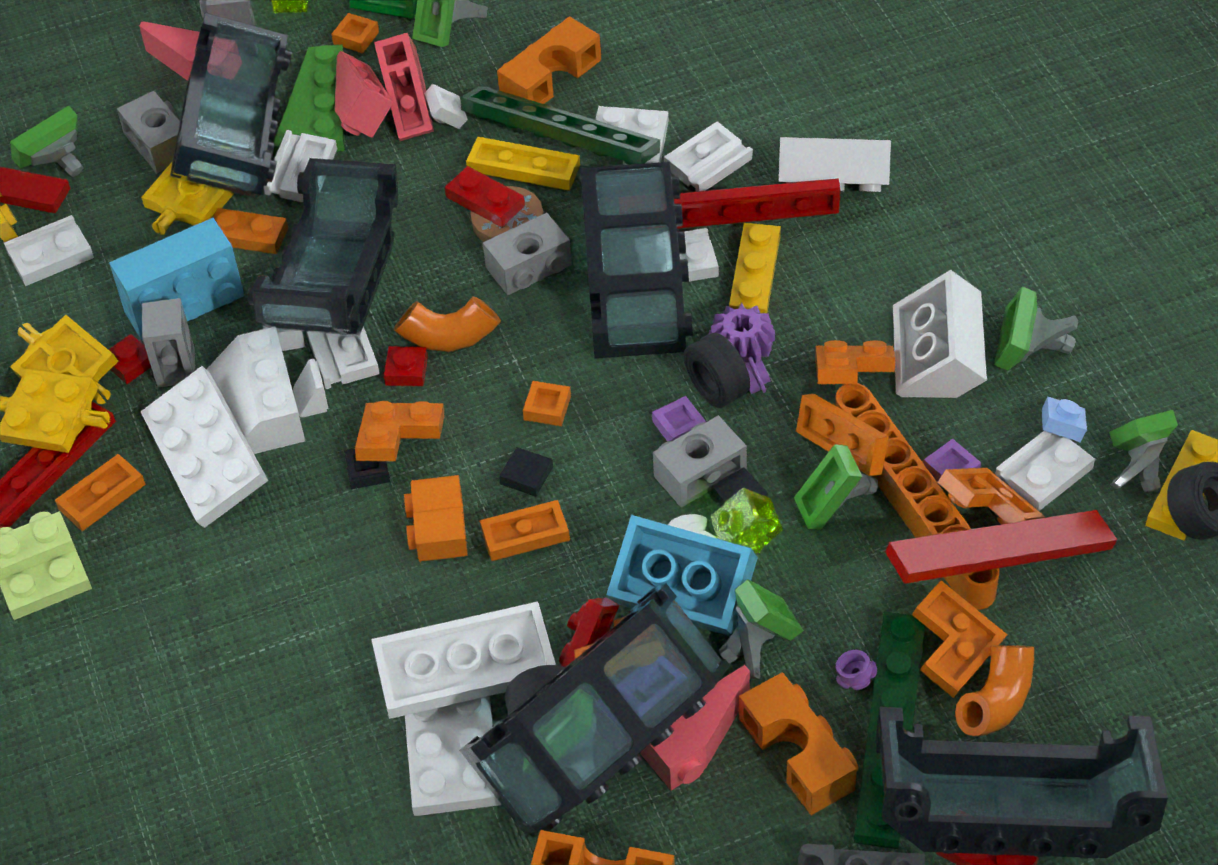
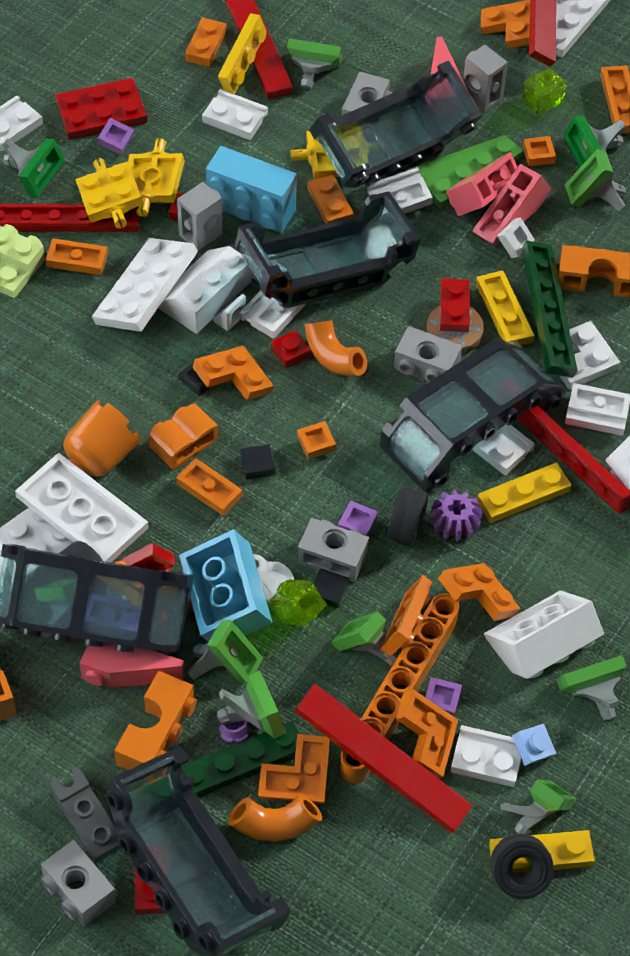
camera: 50 degrees right, 5 degrees up
(382, 590) = (99, 440): none -> orange cylinder
(758, 375) = (428, 541): medium lavender plate -> none
(852, 627) = (253, 706): none -> piece

